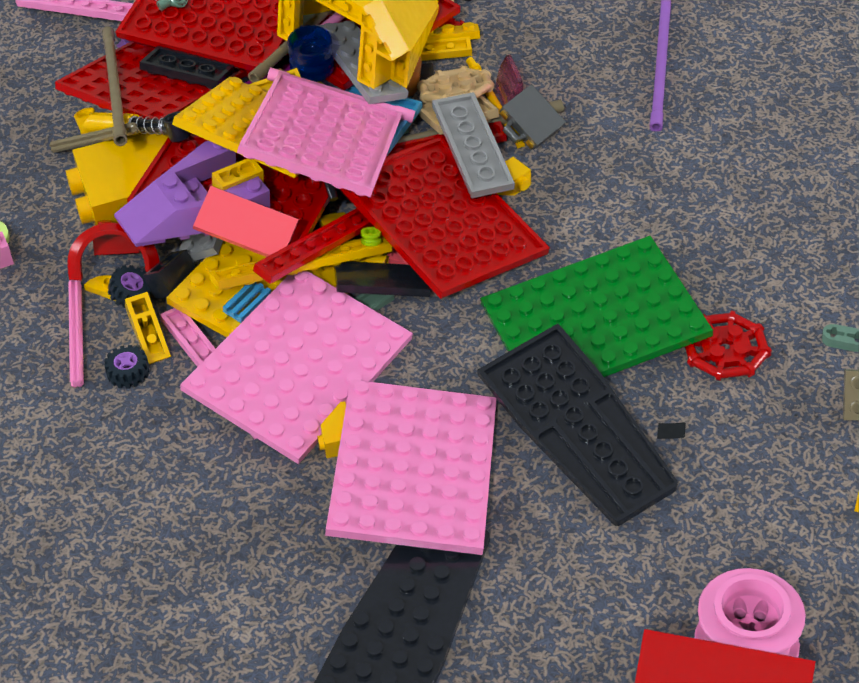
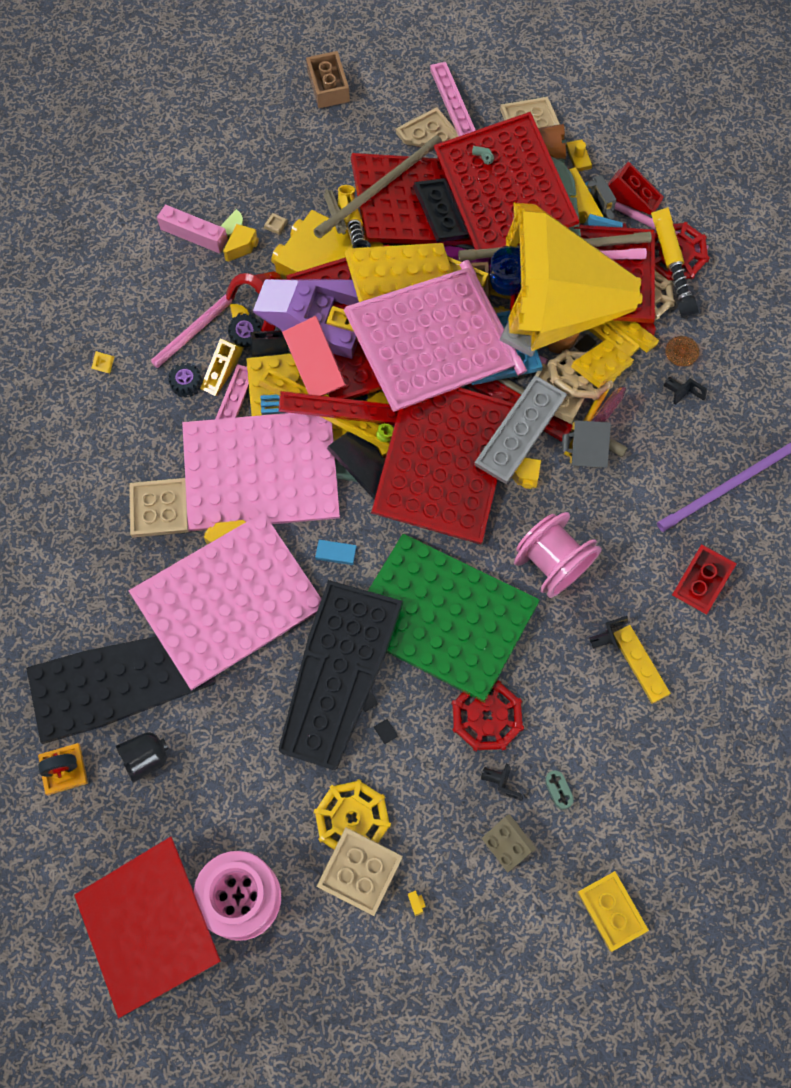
camera: 50 degrees right, 20 degrees up
(24, 423) = (102, 362): none -> yellow tile
(26, 235) = (240, 242): none -> yellow slope
(37, 202) = (275, 224): none -> tan tile
(80, 42) = (425, 127): none -> tan plate
(246, 470) = (158, 508): none -> tan plate
(446, 360) = (336, 552): none -> dark azure tile
(462, 64) = (602, 363): none -> yellow plate
(502, 18) = (682, 351): none -> clear orange wheel
(516, 636) = (143, 755): none -> black cylinder
(539, 38) = (682, 389): none -> black bracket
(622, 189) = (556, 553): none -> bright pink wheel
(728, 216) = (607, 637): none -> black bracket
(734, 124) = (704, 579): none -> red slope
(739, 517) = (349, 806): none -> yellow plate
(773, 215) = (641, 664): none -> yellow plate
(800, 368) = (501, 779): none -> black bracket
(802, 524) = (359, 871): none -> tan plate

